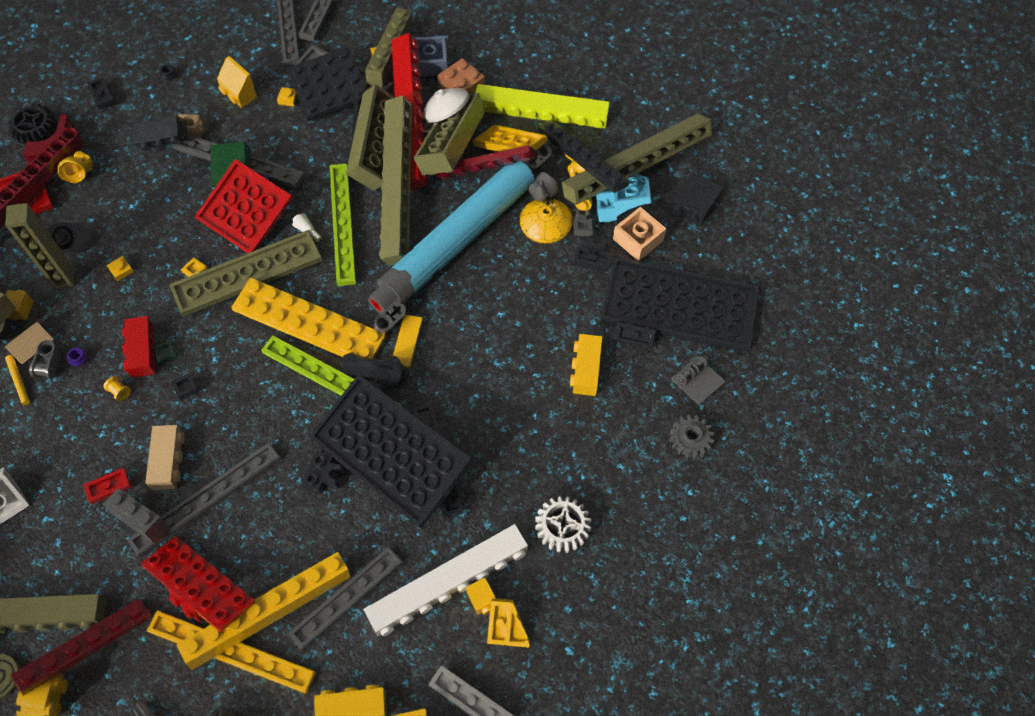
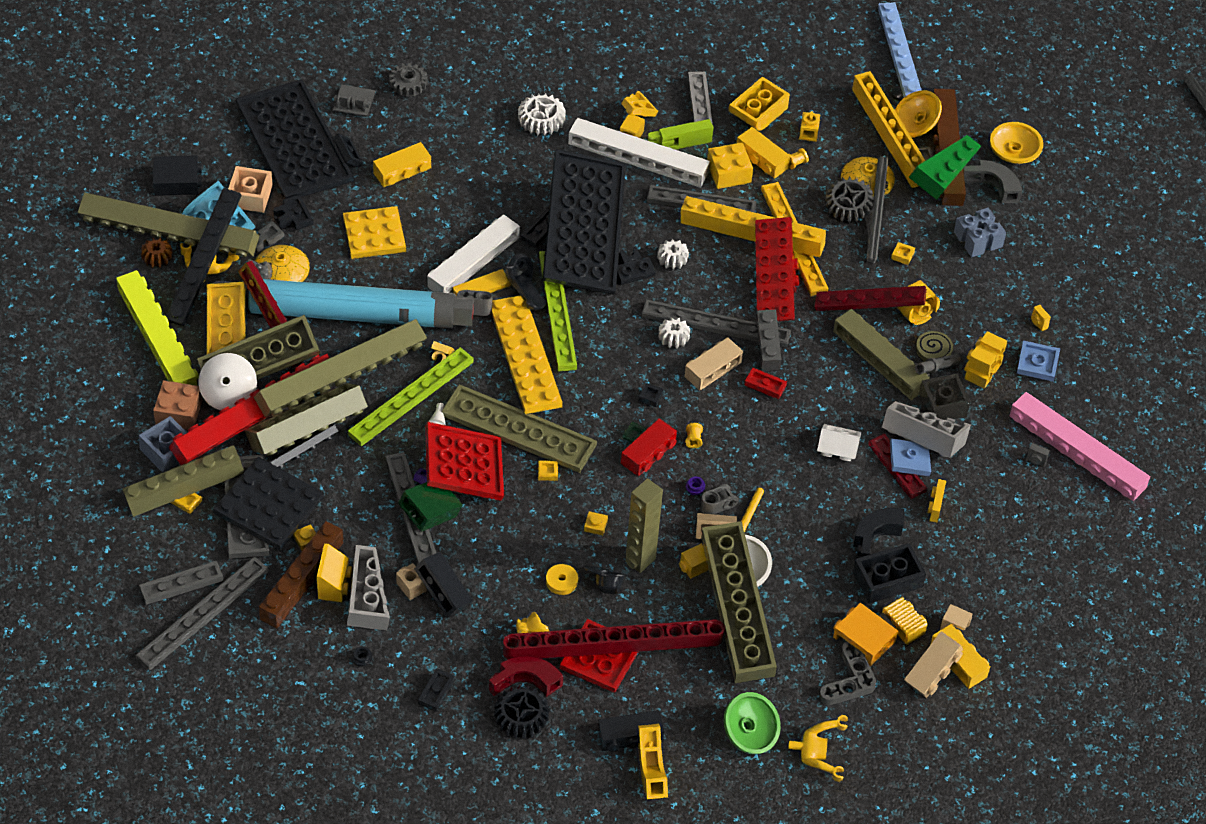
camera: 130 degrees left, 10 degrees down
(94, 218) = (562, 587): none -> yellow piece
(204, 94) = (367, 596): none -> light grey wedge
(223, 450) = (674, 333): none -> white gear
(257, 72) = (298, 576): none -> reddish brown brick
(306, 508) = (672, 254): none -> white gear
(360, 655) = (730, 165): none -> yellow brick
(365, 268) = (441, 349): none -> yellow tile
(433, 637) = (683, 135): none -> lime hinge
(440, 354) = (474, 255): none -> white brick
(530, 302) = (374, 232): none -> yellow plate
(619, 143) = (156, 252): none -> reddish brown gear

